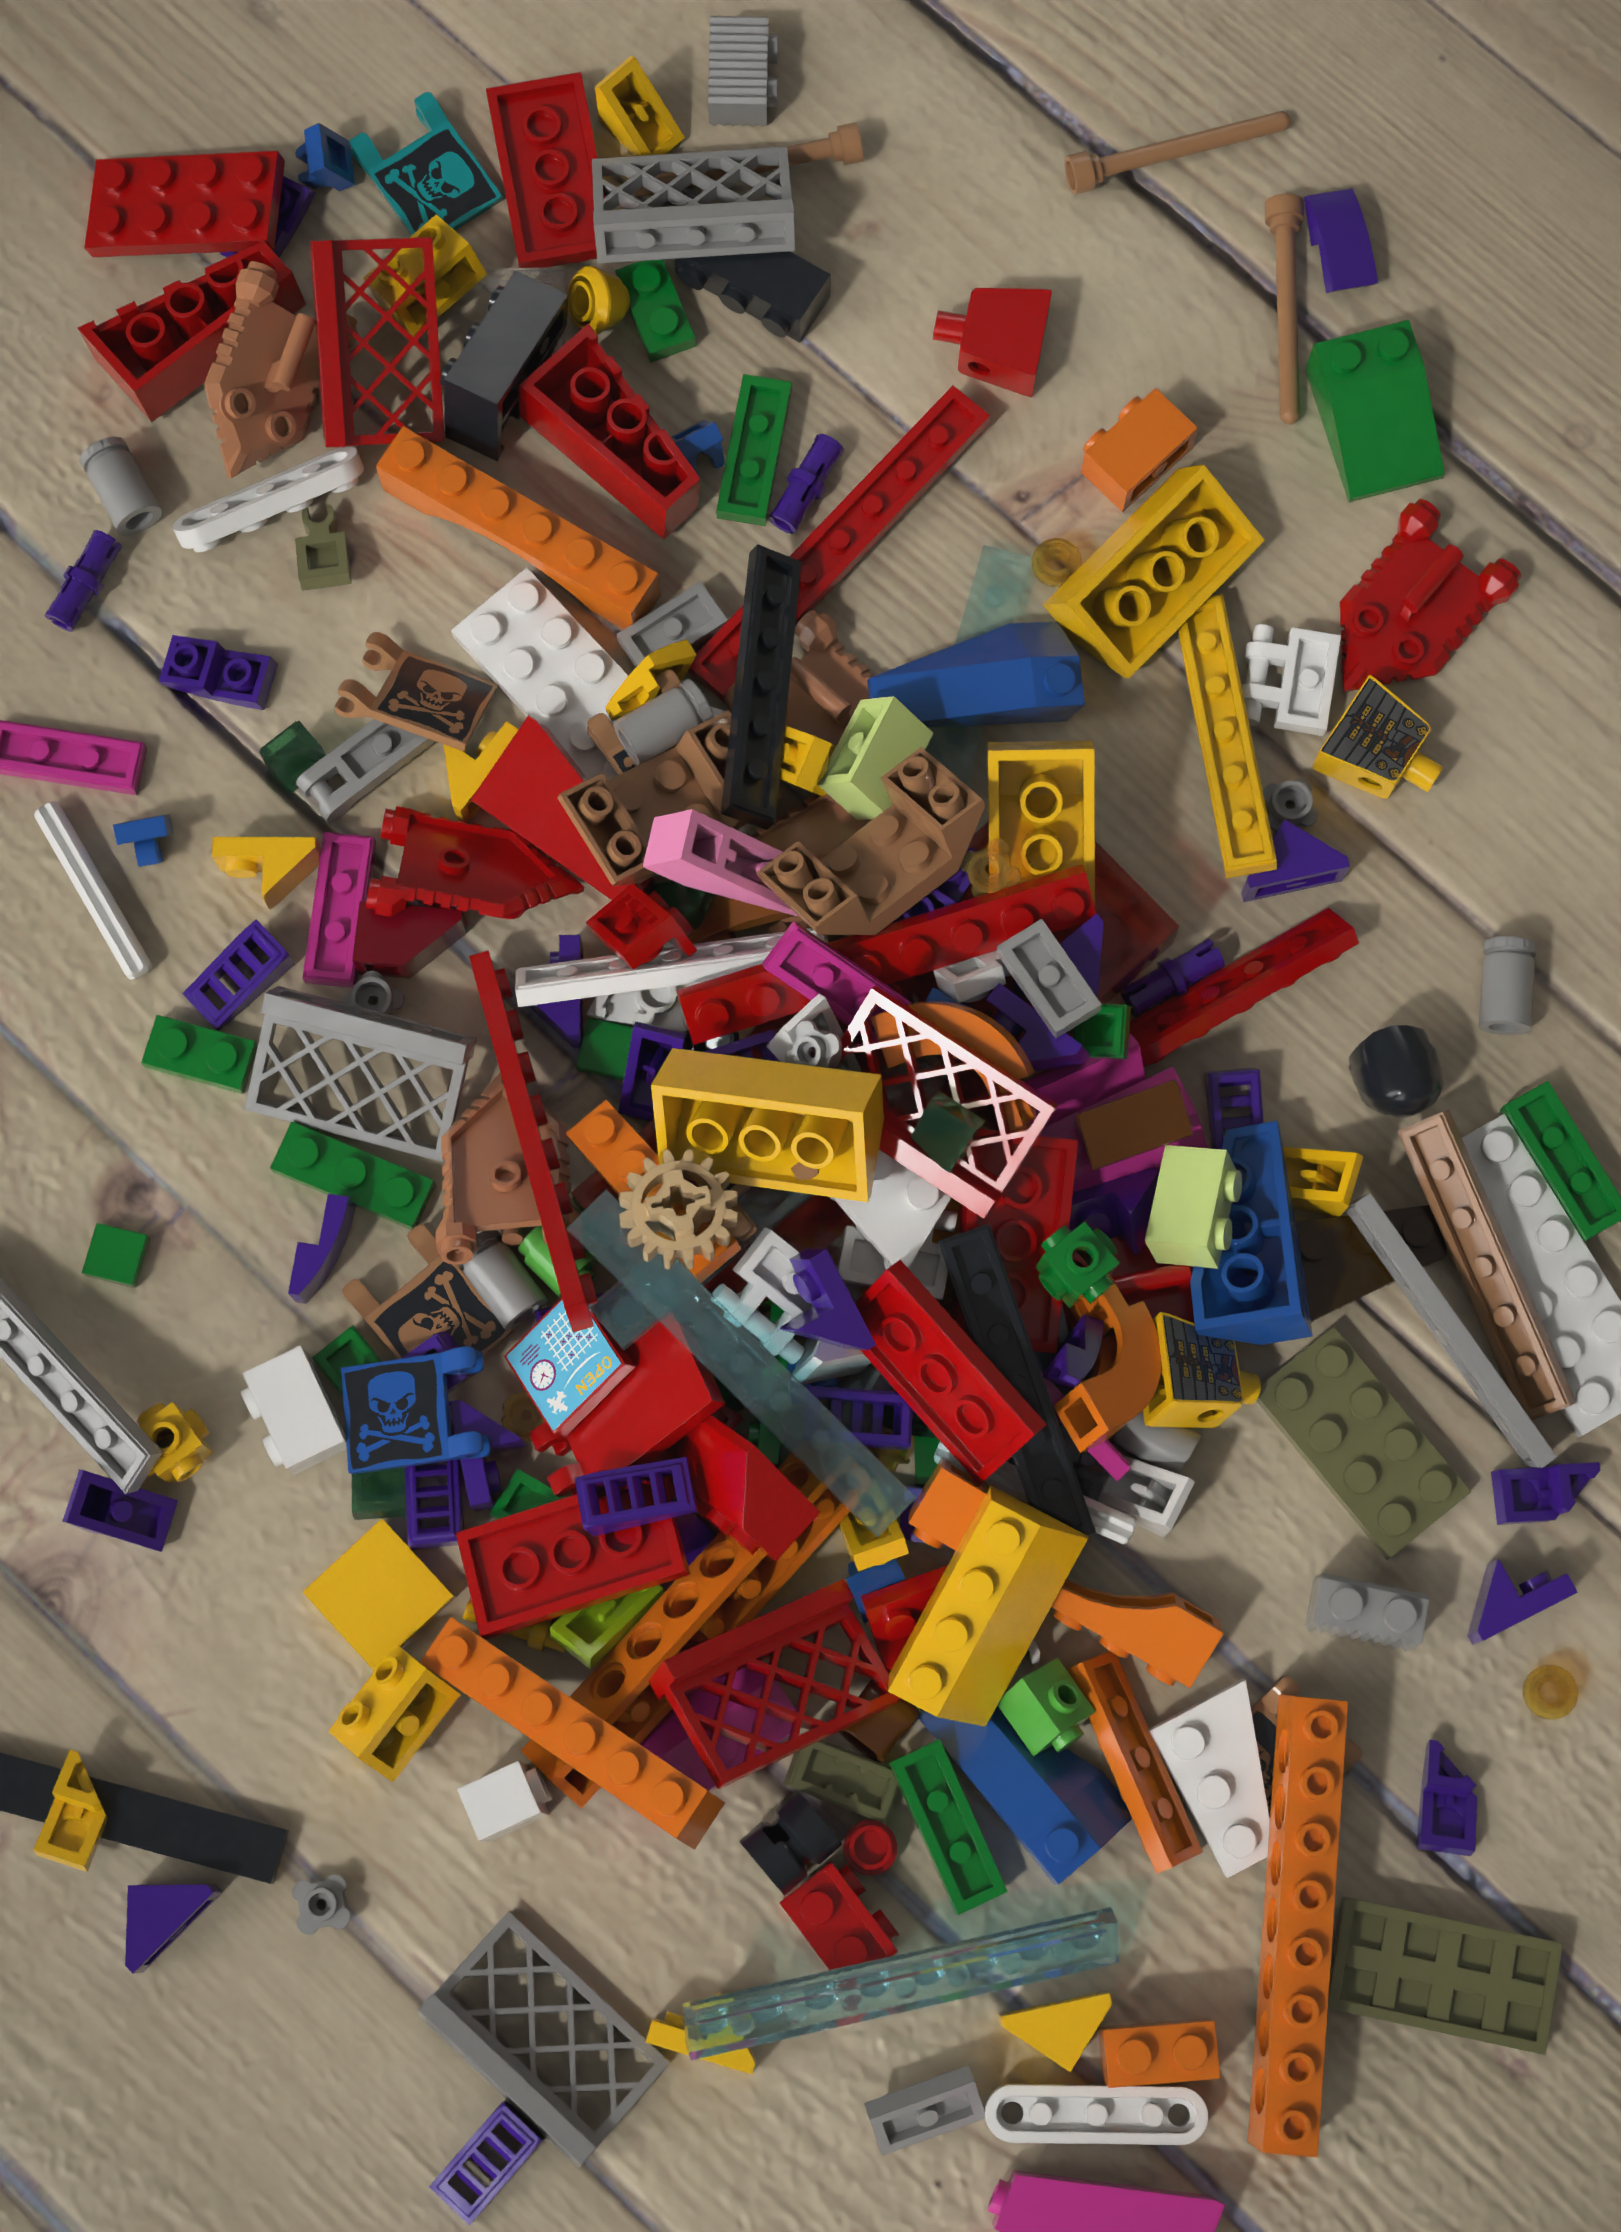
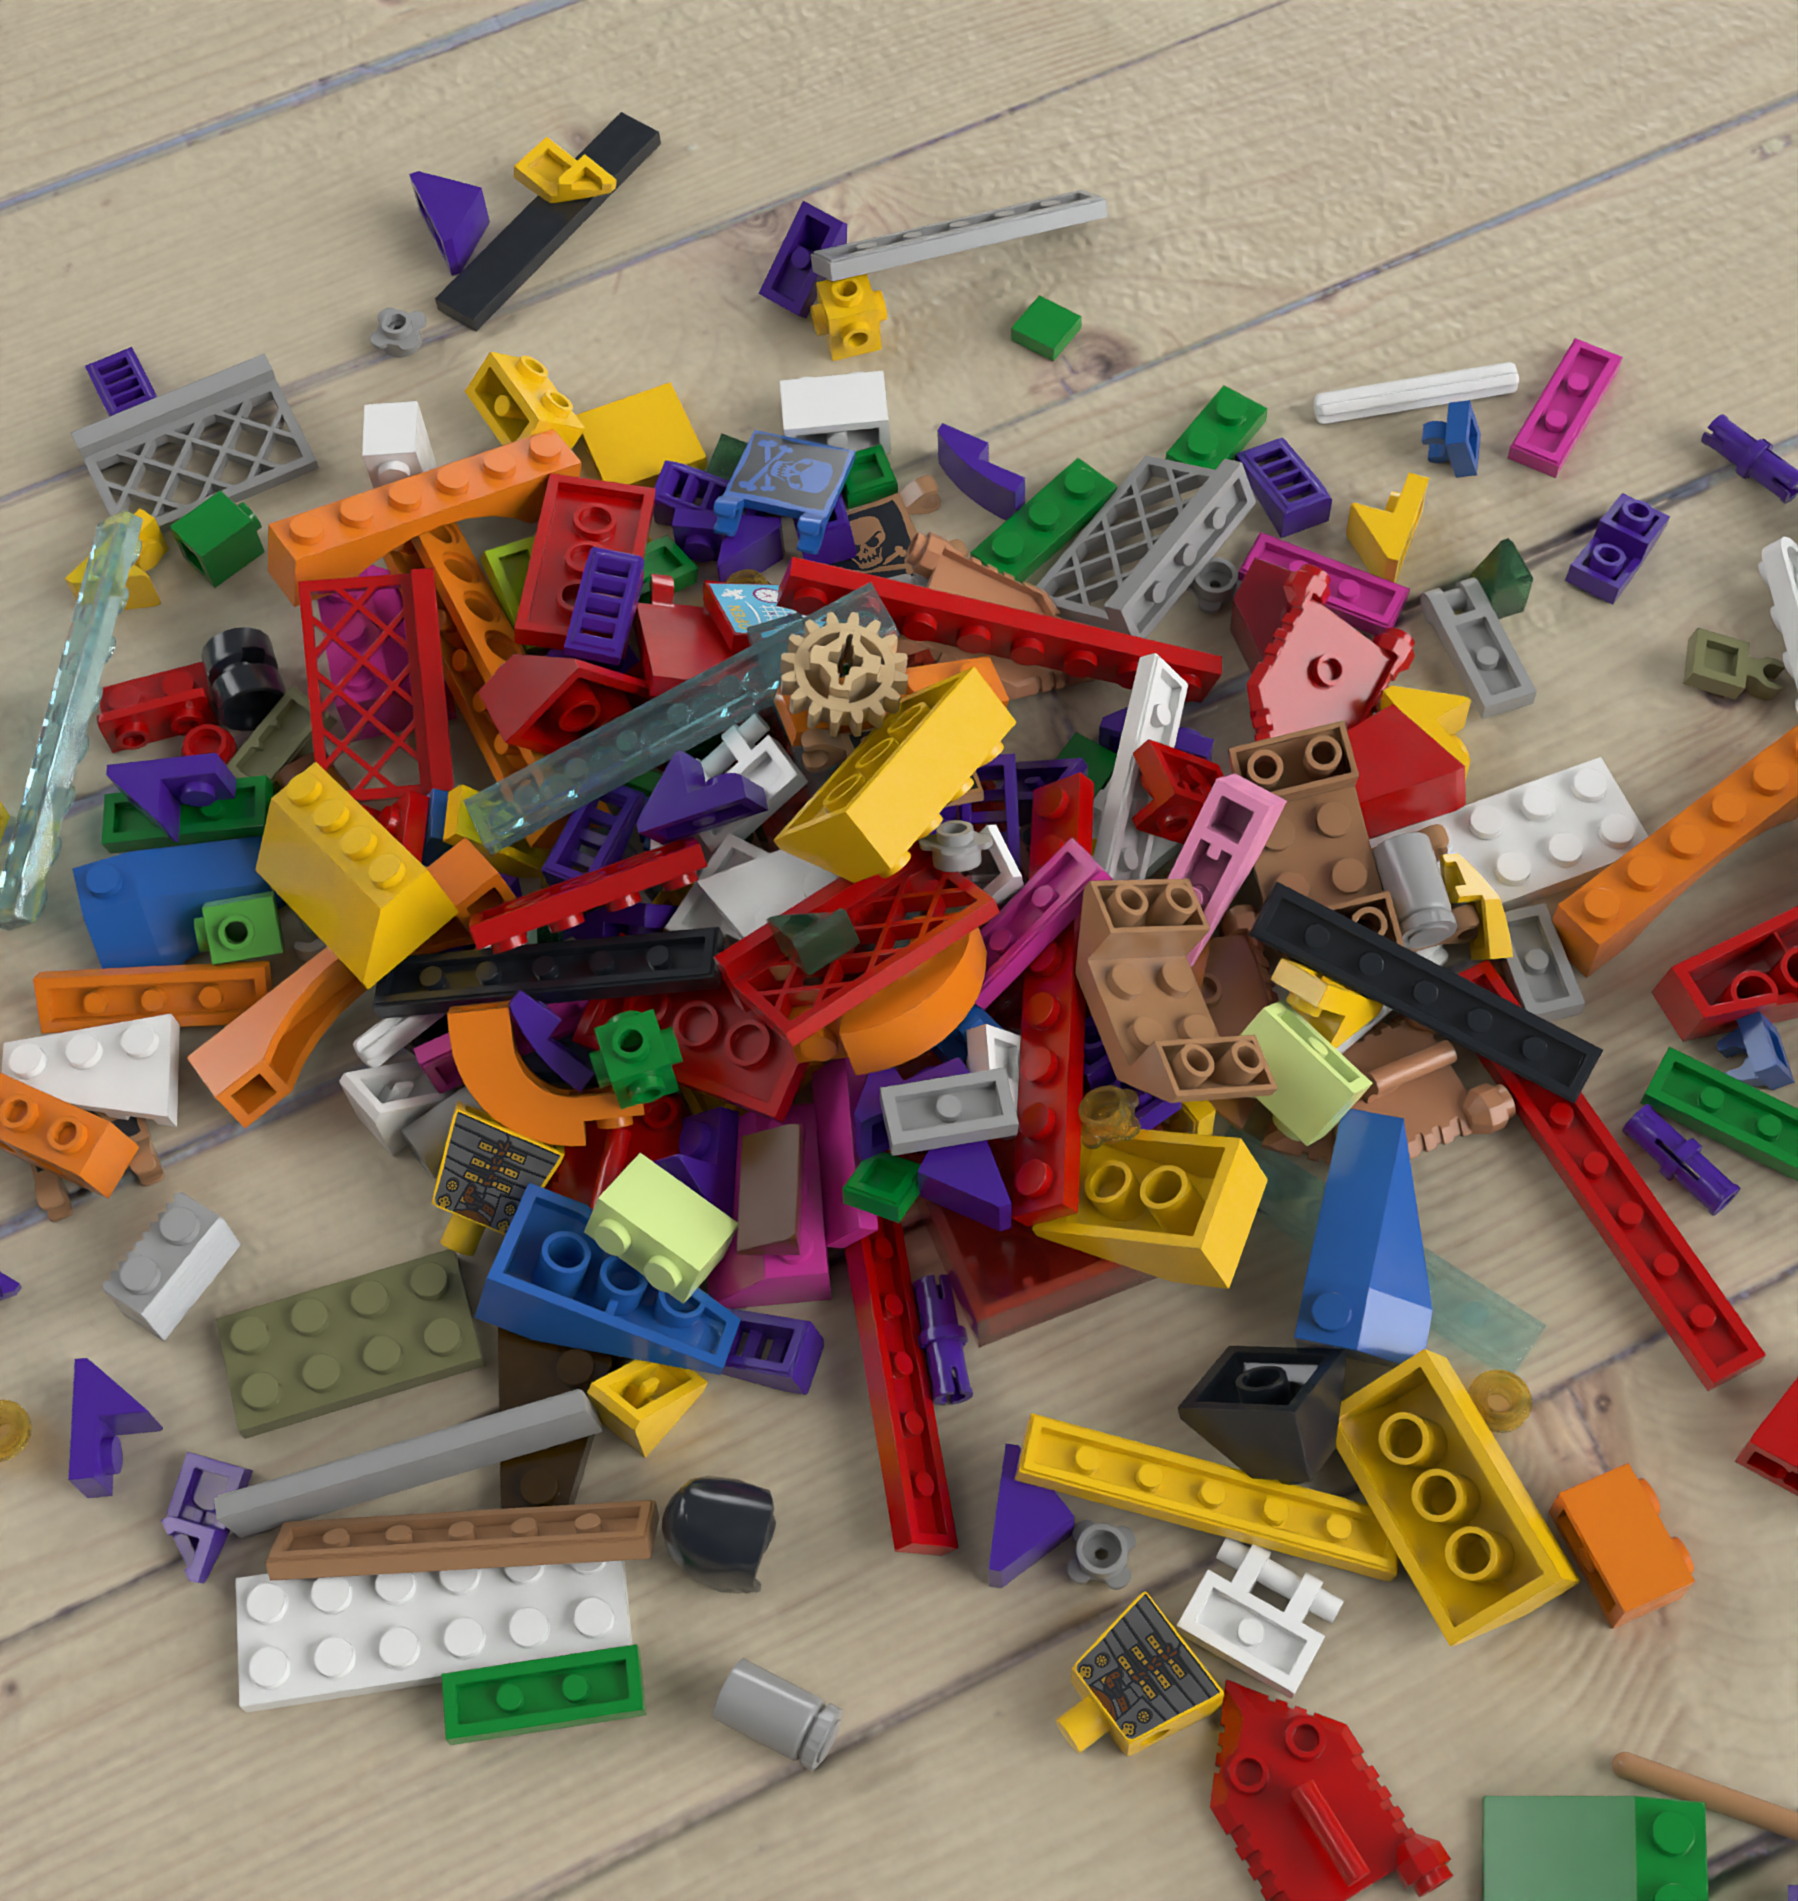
camera: 115 degrees right, 15 degrees down
(418, 695) = (1523, 706): medium nougat flag -> none
(637, 1956) = (219, 537): none -> green brick
(953, 1849) = (164, 784): none -> dark purple slope
(1141, 711) = (1270, 1409): none -> black slope

